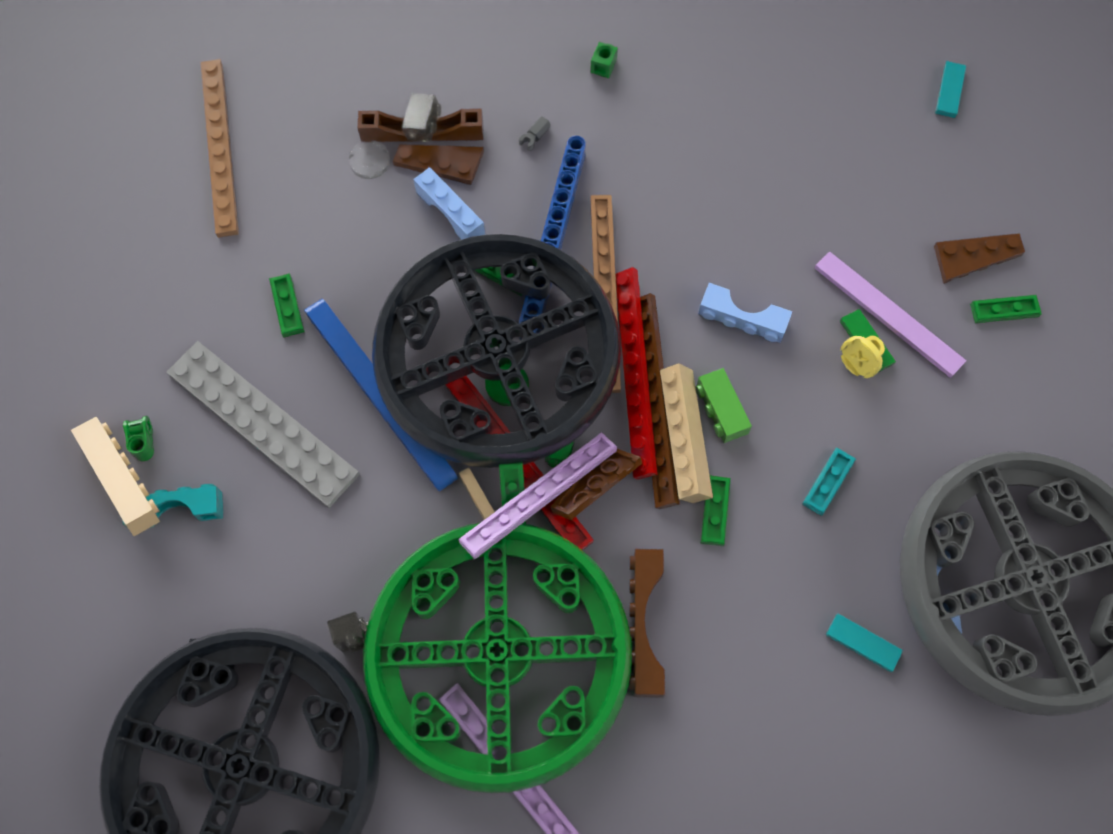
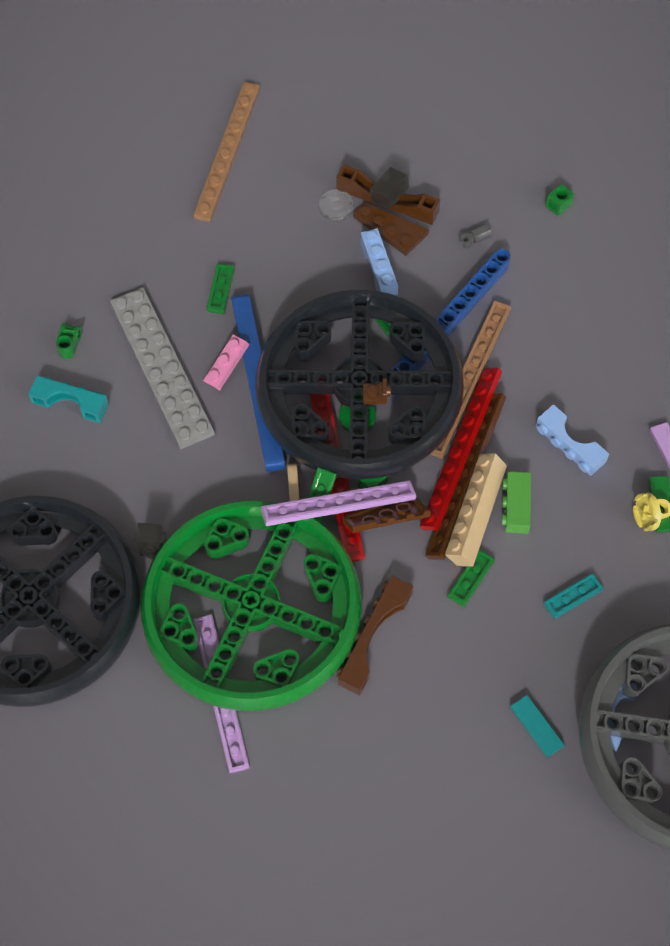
camera: 25 degrees right, 5 degrees down
(115, 476) = (38, 358): brick -> none
(334, 387) = (226, 362): none -> bright pink plate
(524, 353) = (376, 393): none -> reddish brown bracket

